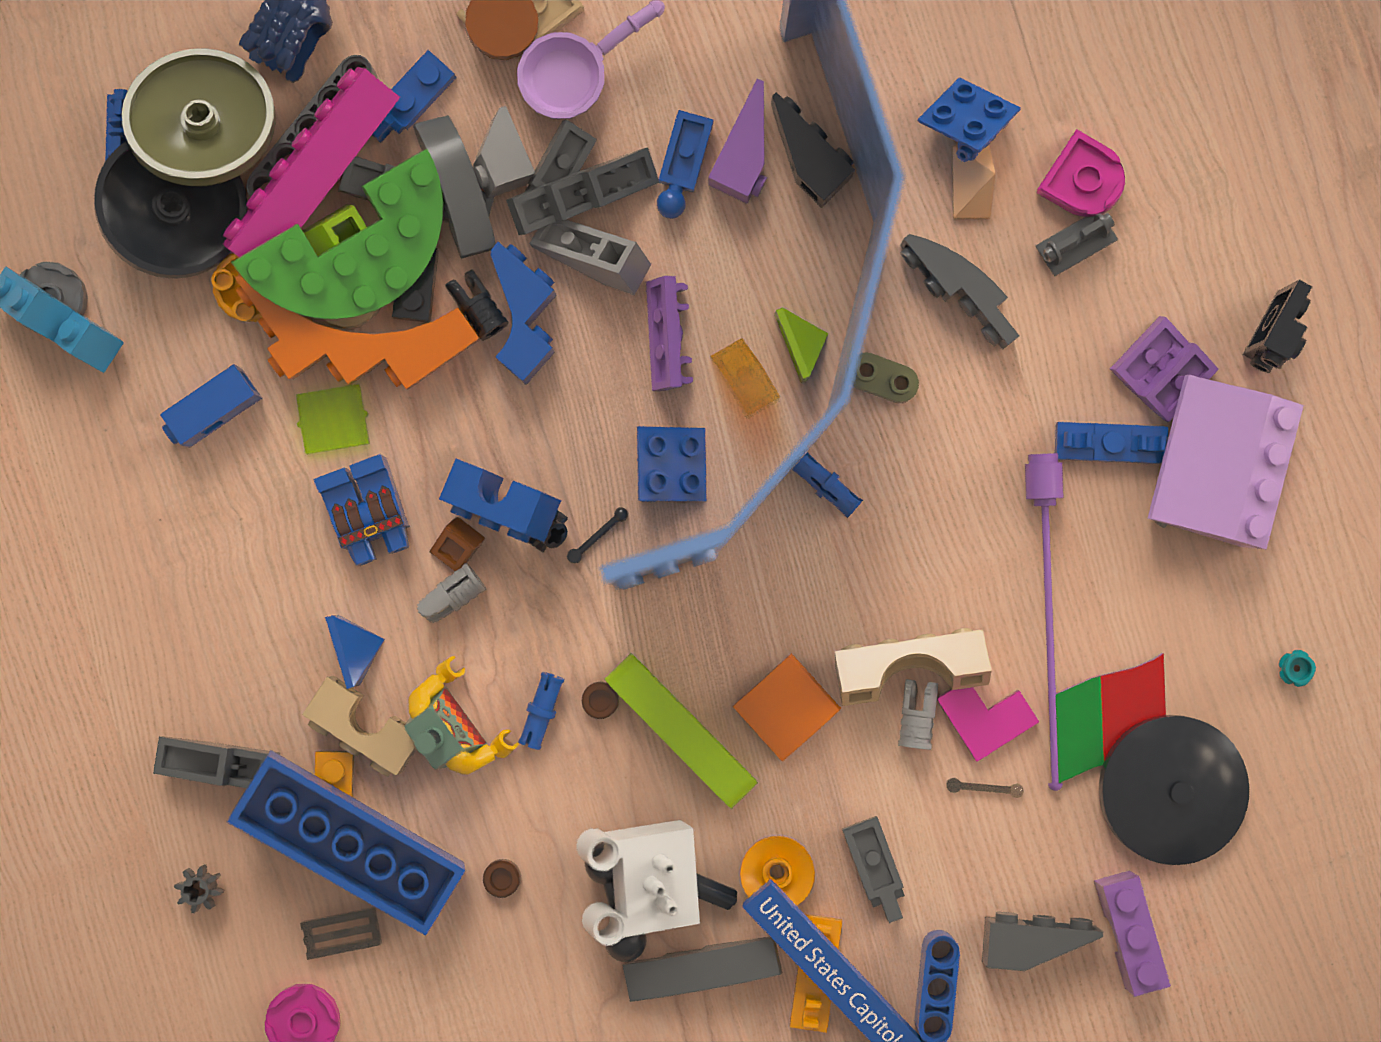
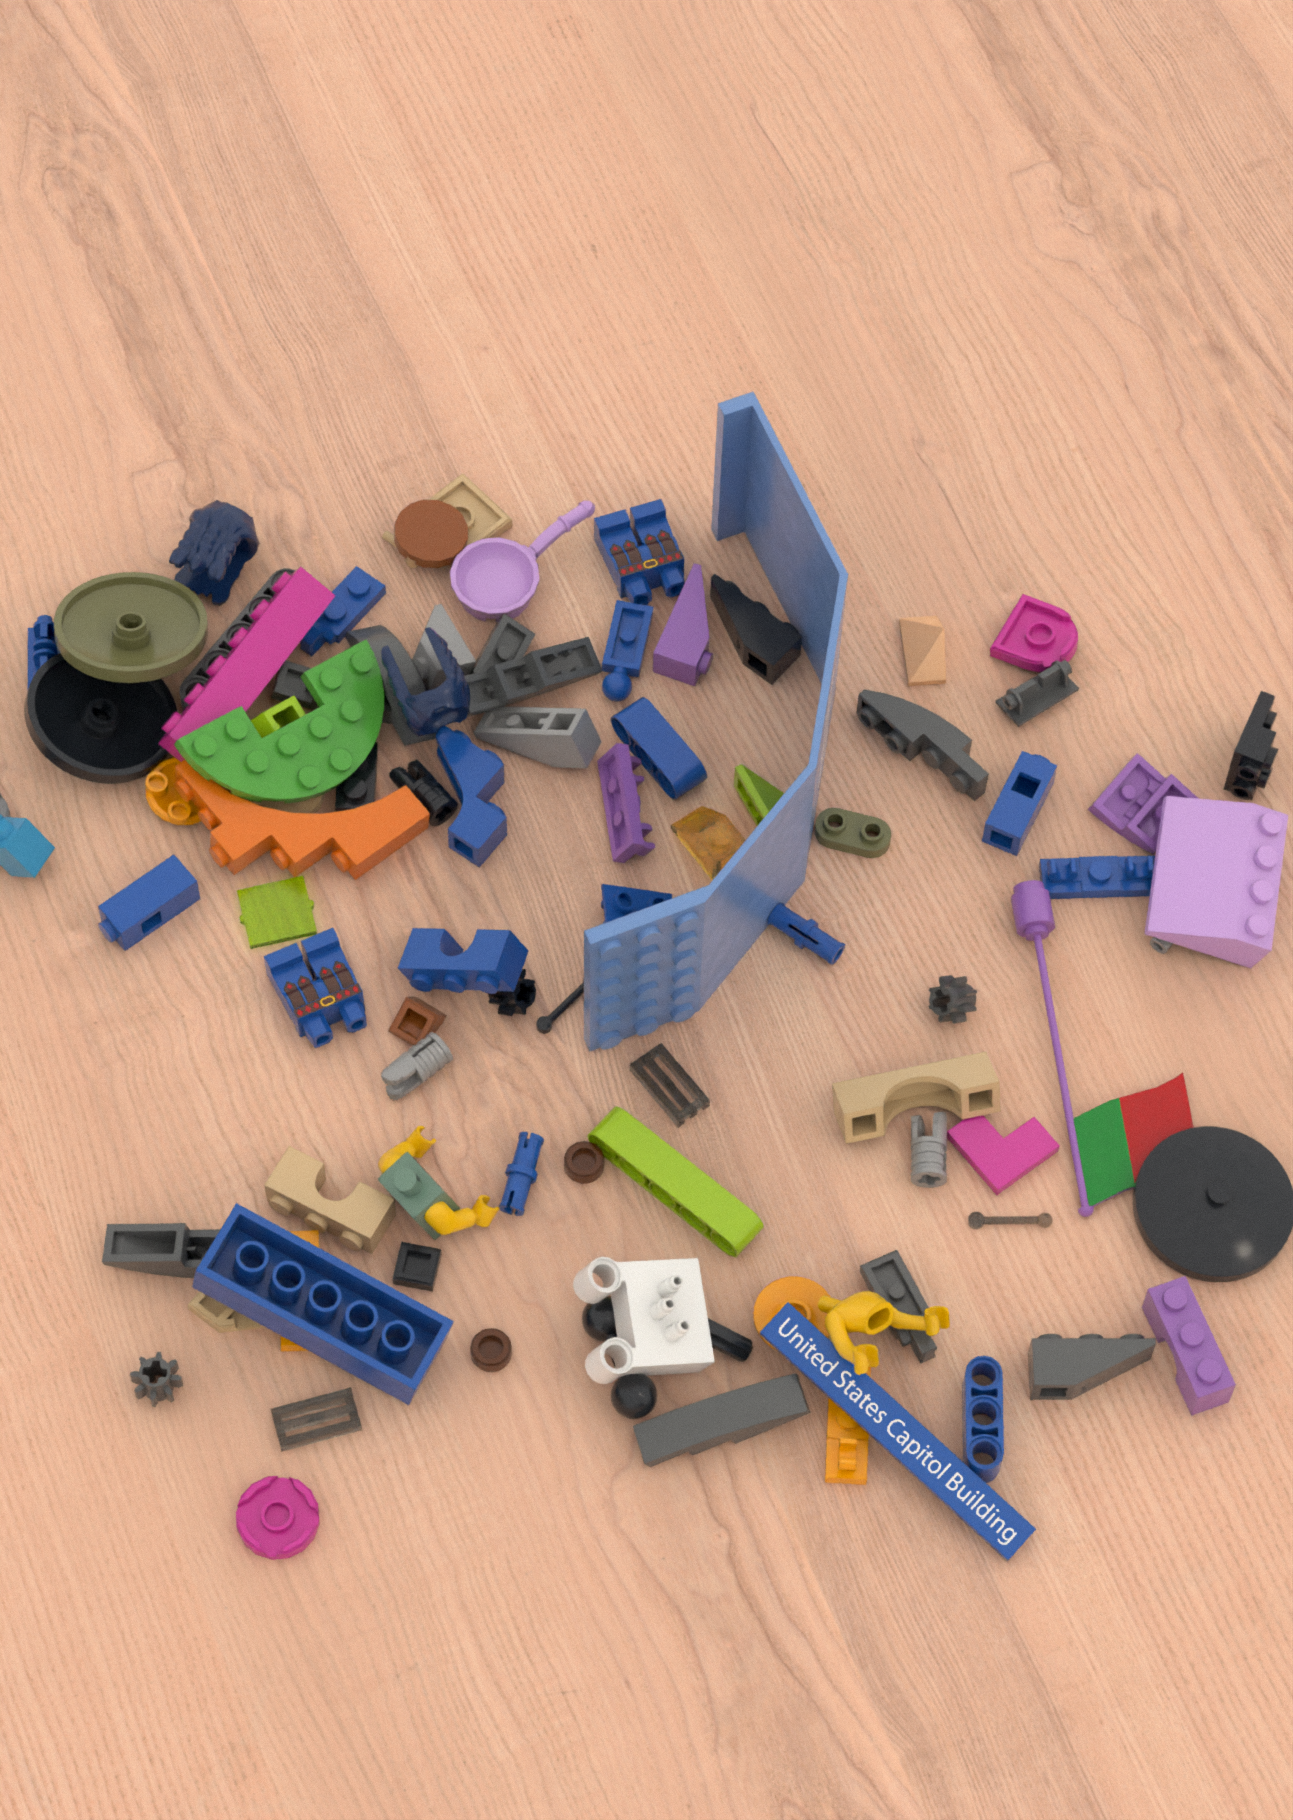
camera: 10 degrees left, 25 degrees down
(353, 647) = (314, 1124): blue slope -> none
(440, 791) = (417, 1266): none -> black tile
(501, 232) = (435, 707): none -> dark blue piece
(702, 655) = (688, 1109): none -> clear smoke tile
(705, 275) = (659, 748): none -> blue beam
(709, 70) = (640, 552): none -> blue hips
(786, 707) = (786, 1151): orange slope -> none
(841, 897) = (871, 1314): none -> yellow piece
(957, 567) = (952, 999): none -> dark grey gear
(969, 117) = (916, 585): blue hinge -> none
(1046, 361) = (1019, 803): none -> blue brick

